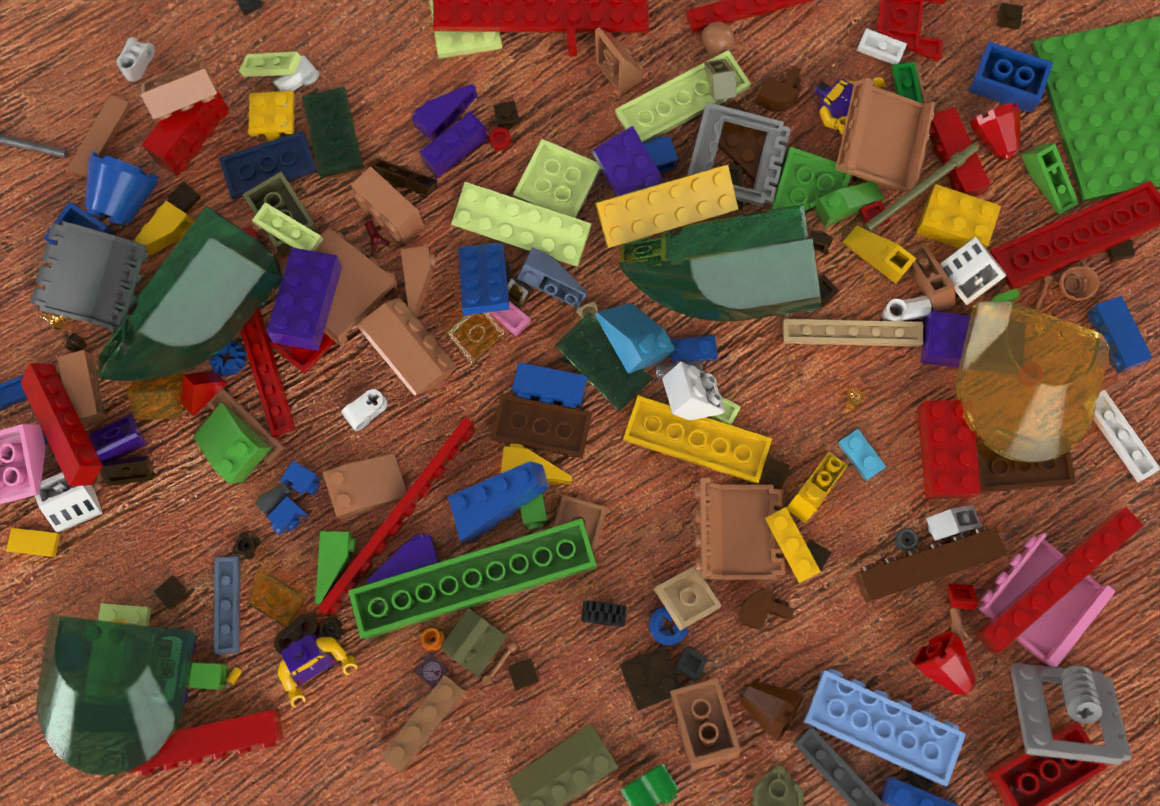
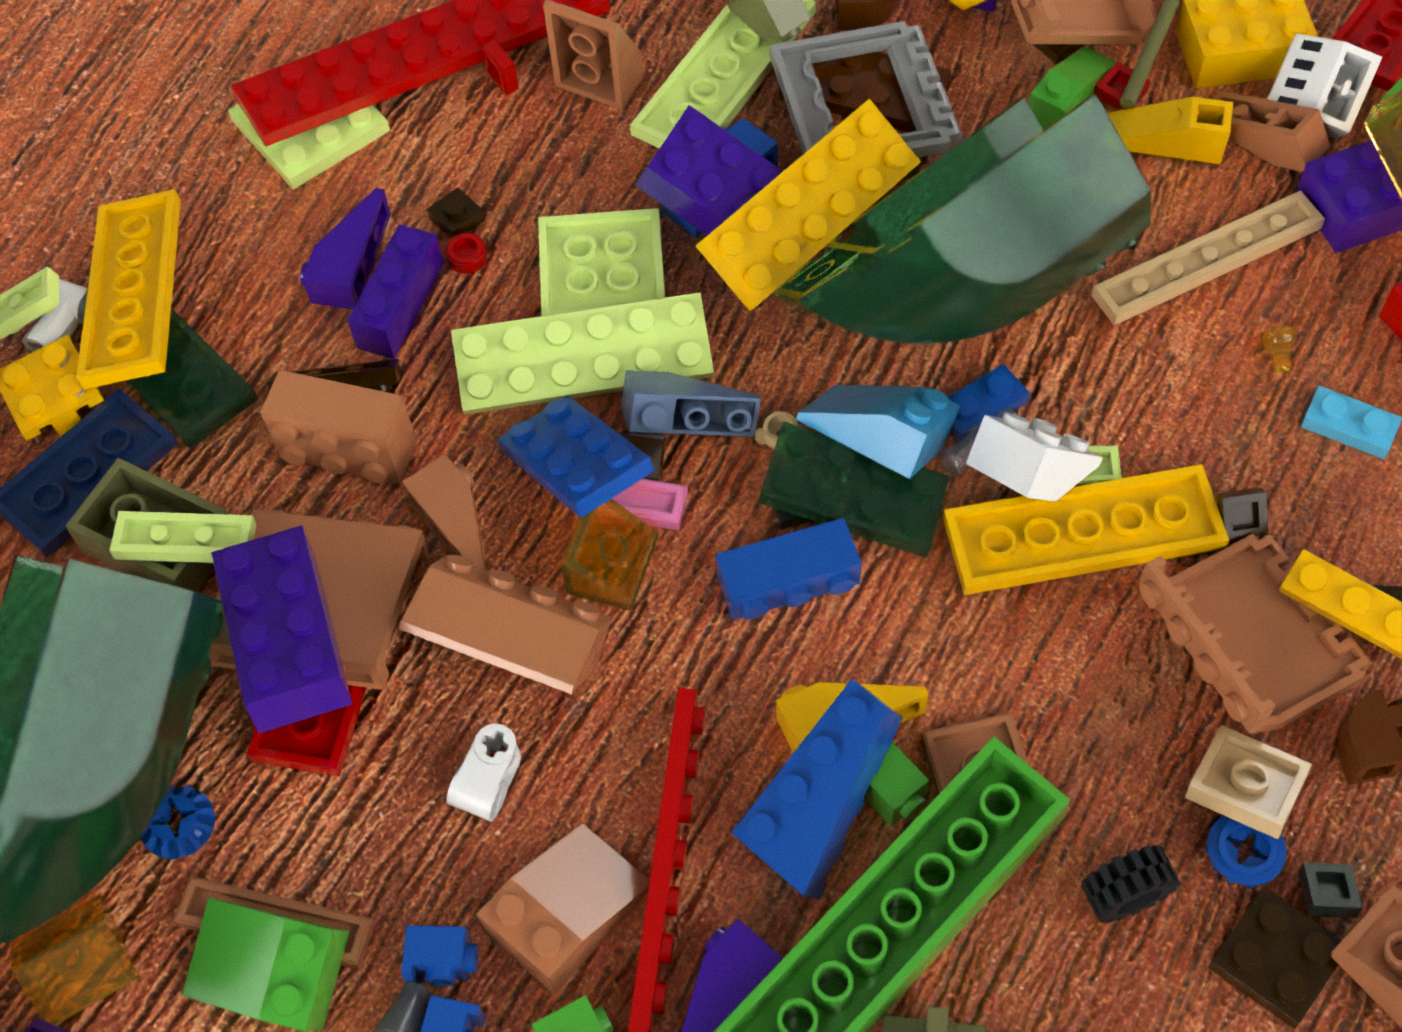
camera: 30 degrees left, 15 degrees down
(200, 389) = (152, 902): red slope -> none
(267, 376) = (274, 815): red plate -> none
(332, 79) = (129, 290): none -> yellow plate
(374, 237) = (338, 493): dark red bar -> none
(541, 426) = (815, 641): reddish brown plate -> none
(807, 179) = (989, 78): bright green plate -> none
(817, 487) = (1324, 503): yellow slope -> none
(907, 309) = (1265, 185): white piece -> none

